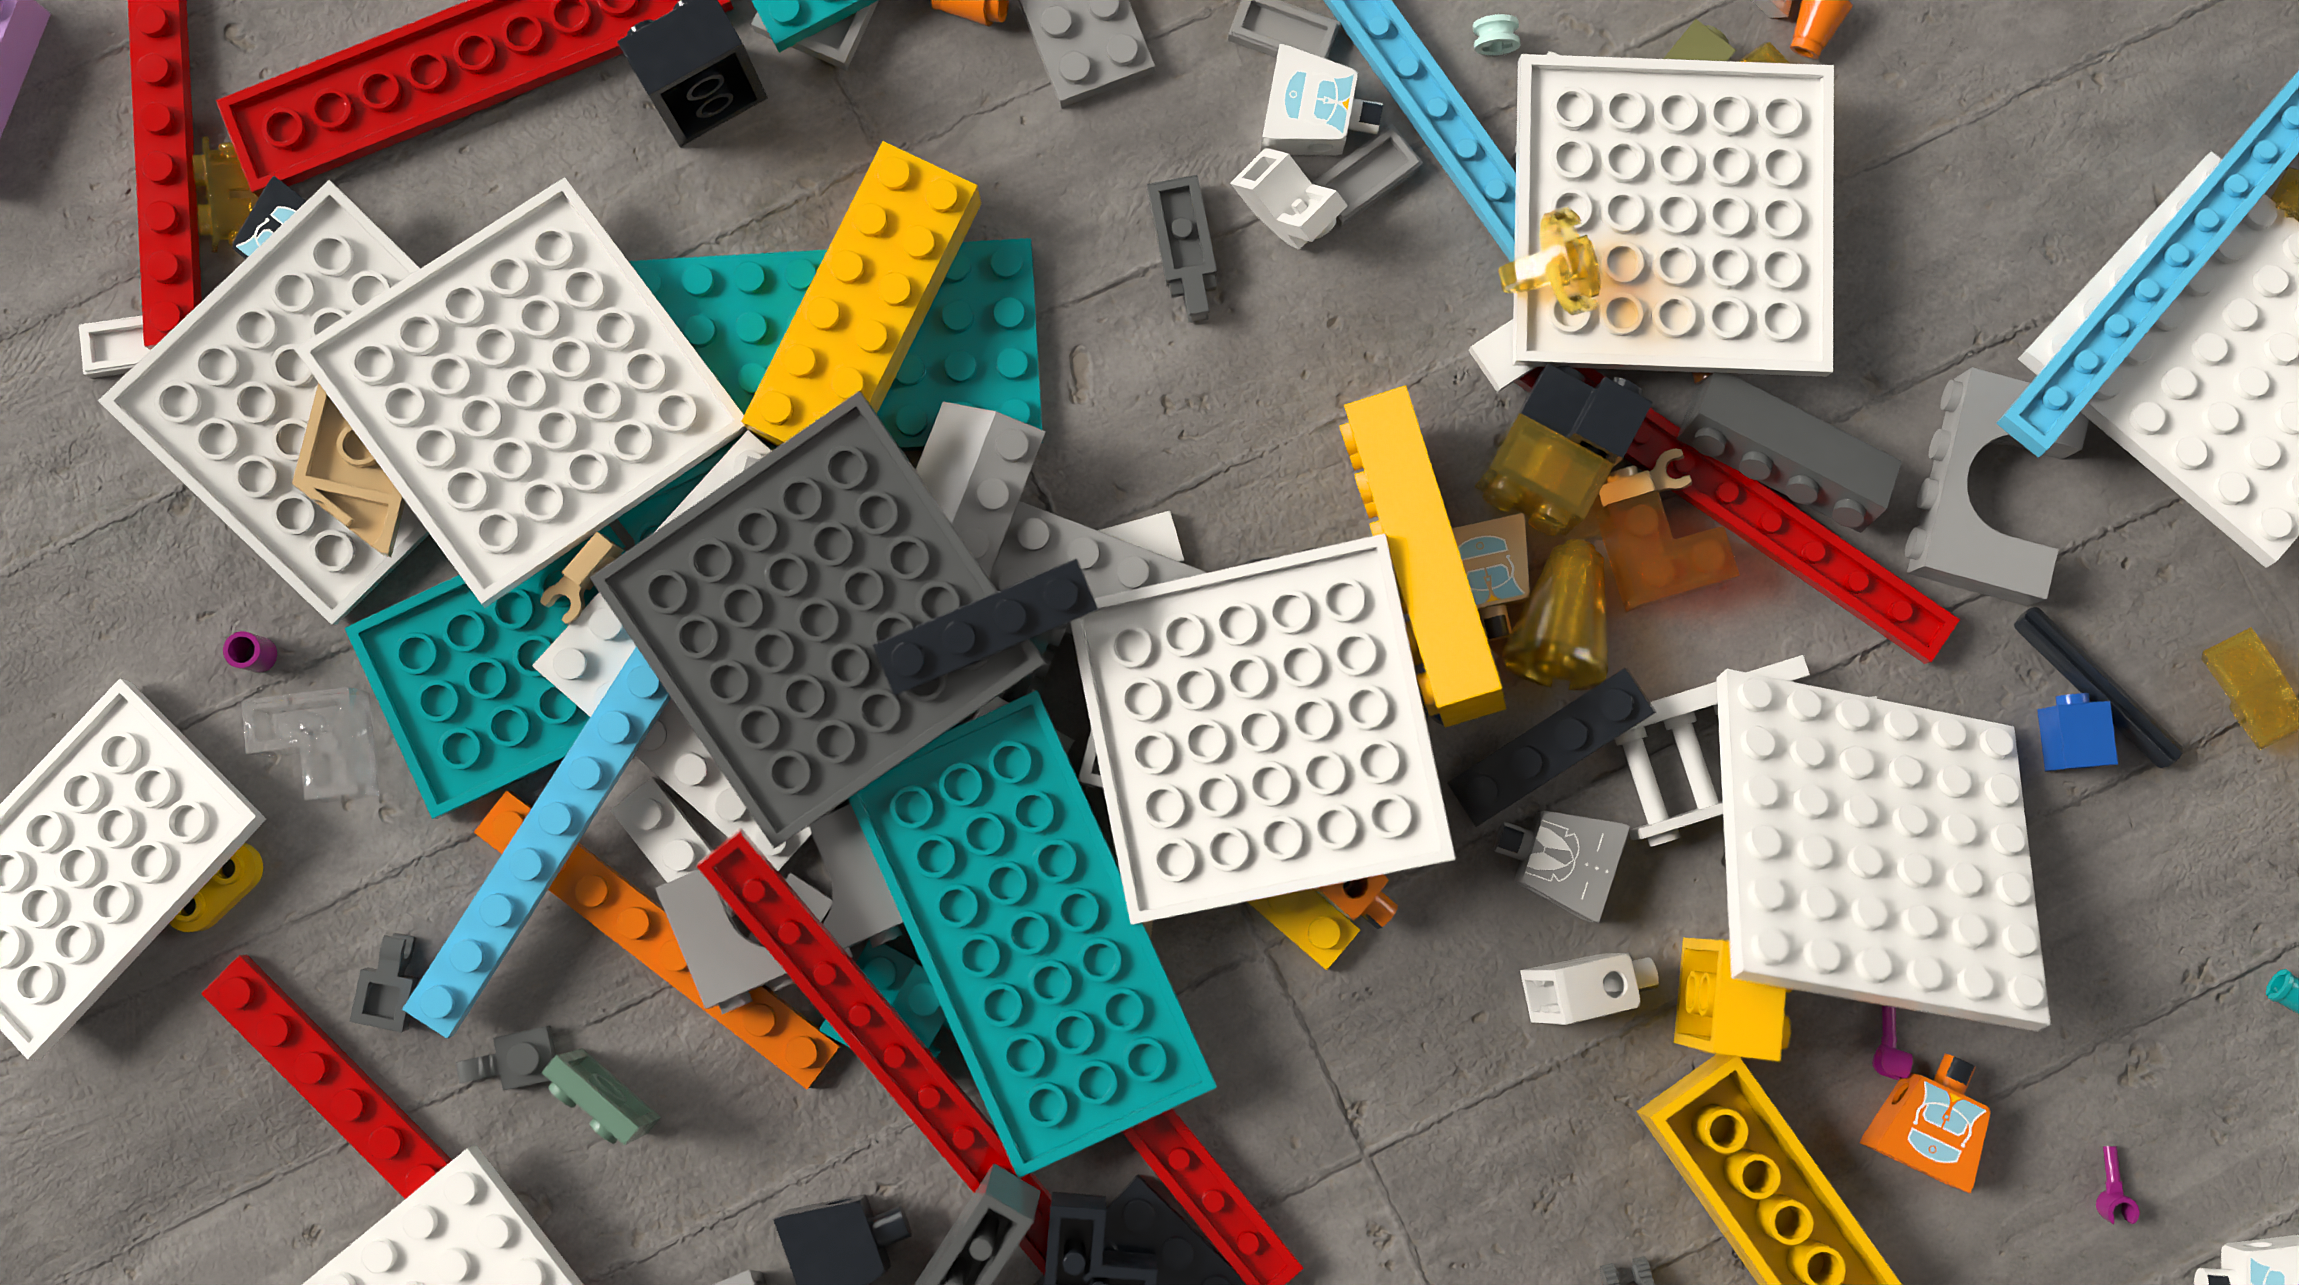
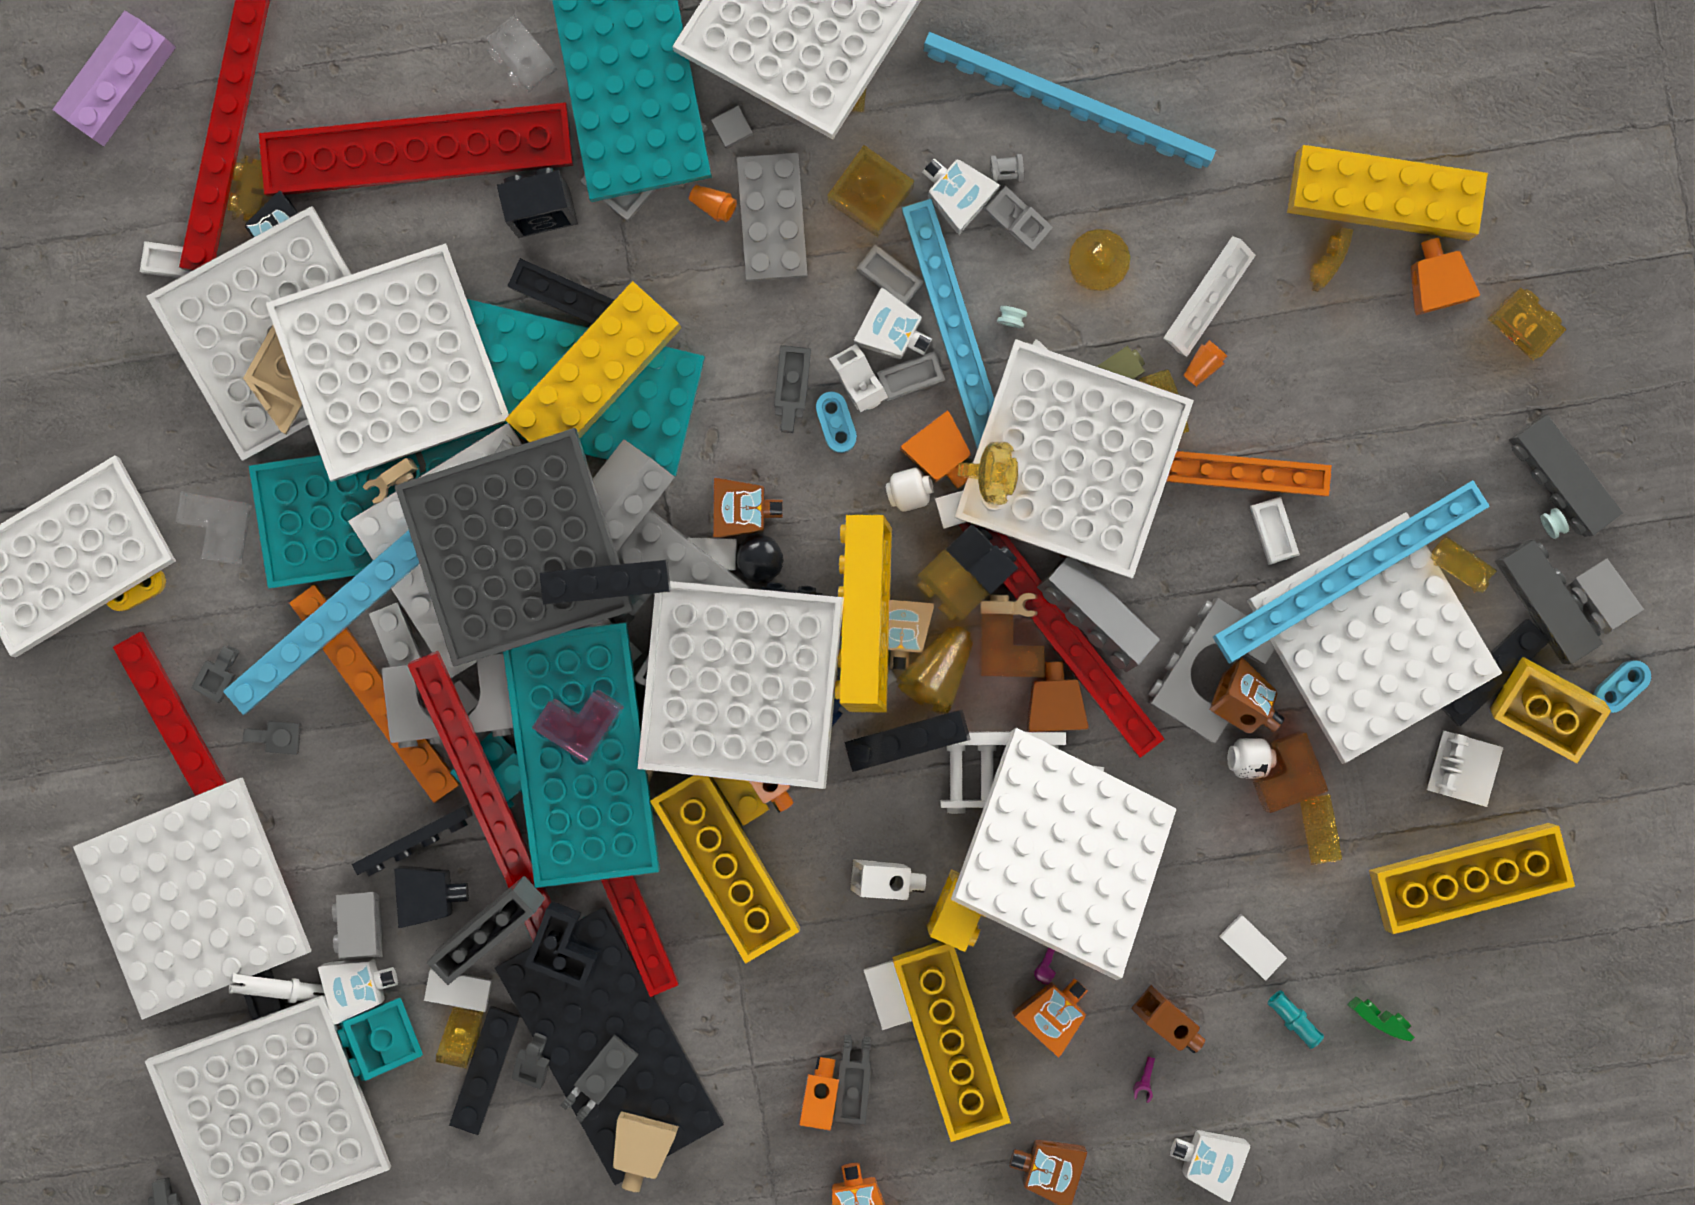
camera: 20 degrees right, 5 degrees up
(237, 646) = (183, 458): magenta hinge -> none
(614, 1107) = (325, 782): sand green plate -> none
(765, 207) = (558, 292): none -> black plate
(775, 1180) = (401, 848): none -> black plate
(1016, 893) = (581, 732): none -> clear pink brick
(1165, 457) = (741, 508): none -> dark orange torso
(1217, 531) = (759, 558): none -> black hair
(1273, 280) = (836, 422): none -> medium azure plate
(1322, 1044) = (725, 866): none -> yellow brick
(1423, 347) = (909, 489): none -> white head
(1451, 273) = (939, 450): none -> orange torso
(1566, 859) = (896, 805): light grey torso -> none
(1649, 1177) = (887, 995): none -> white tile
(1767, 615) = (1056, 702): none -> dark orange torso
(1956, 163) = (1250, 473): none -> orange plate
(2014, 243) = (1274, 530): none -> white tile
(2070, 514) = (1246, 699): none -> dark orange torso
(2077, 733) = (1209, 823): blue brick -> none
(2092, 679) = (1233, 801): black axle -> none
(2107, 608) = (1251, 758): none -> white head
(2134, 1075) = (1168, 1020): none -> dark orange torso
(2191, 613) = (1298, 778): none -> clear orange brick
(2211, 913) = (1253, 947): none -> white tile

